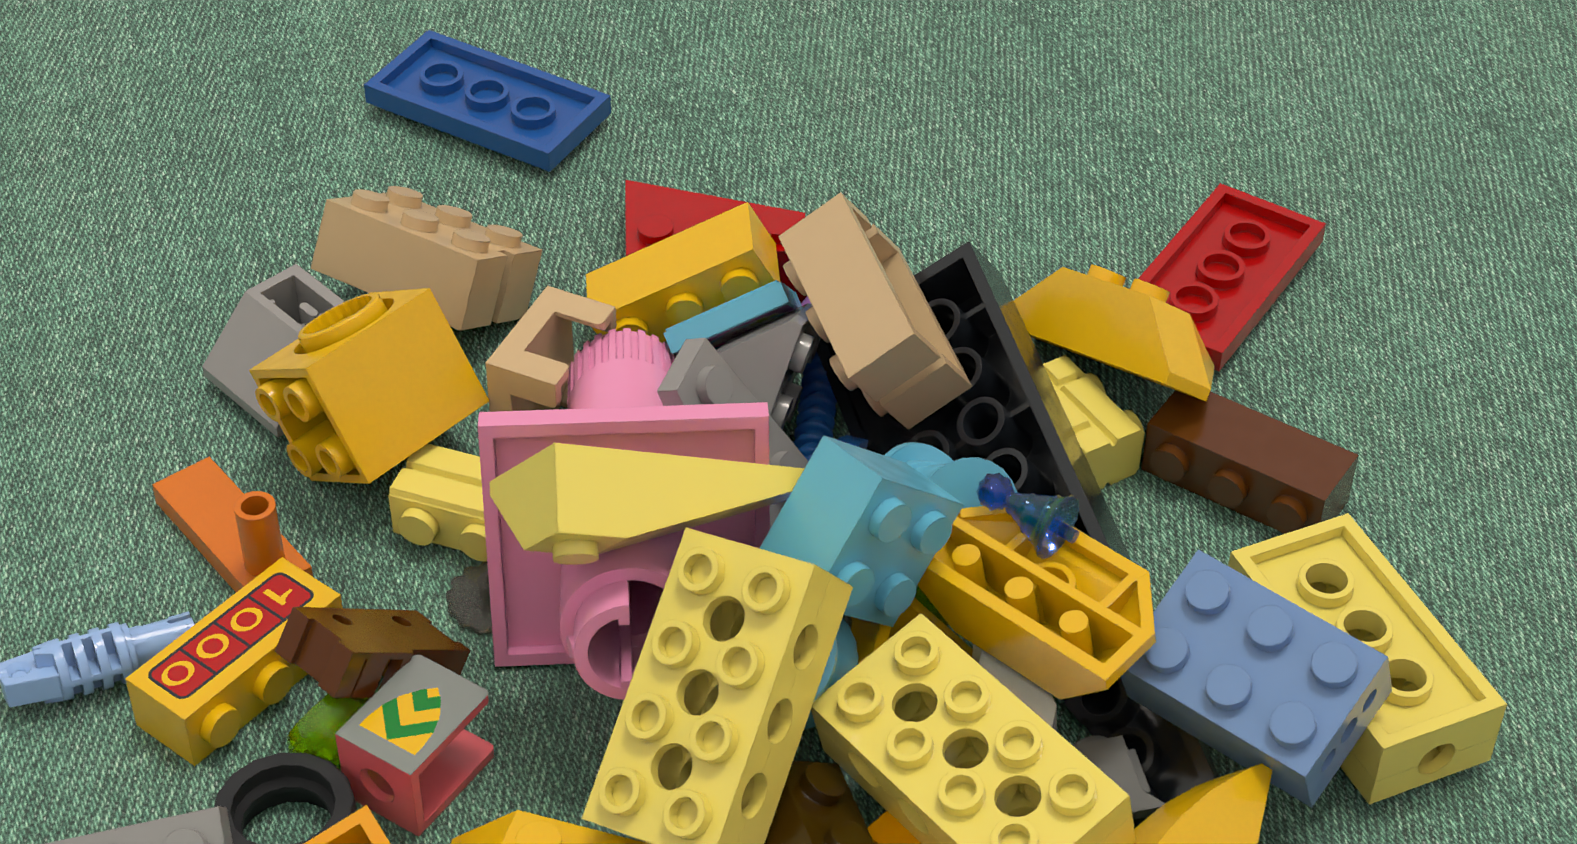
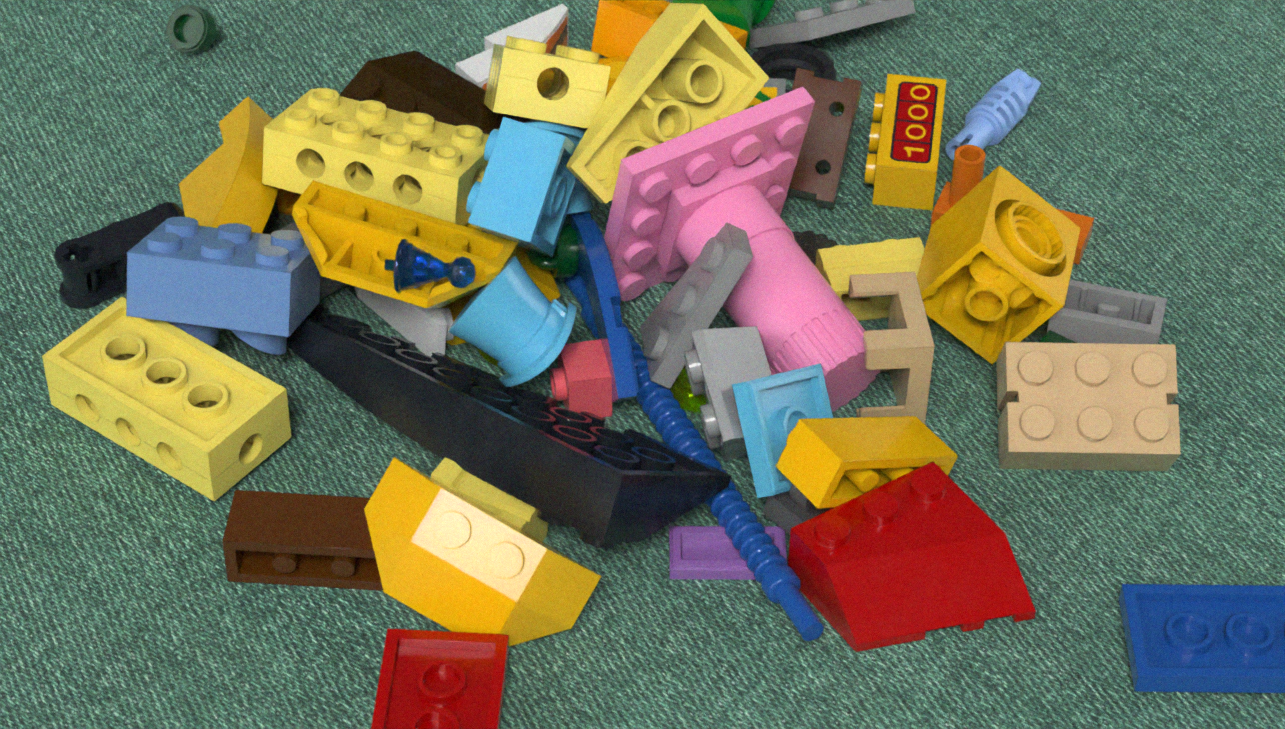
camera: 150 degrees right, 0 degrees up
(872, 313) = (664, 406): tan piece -> none

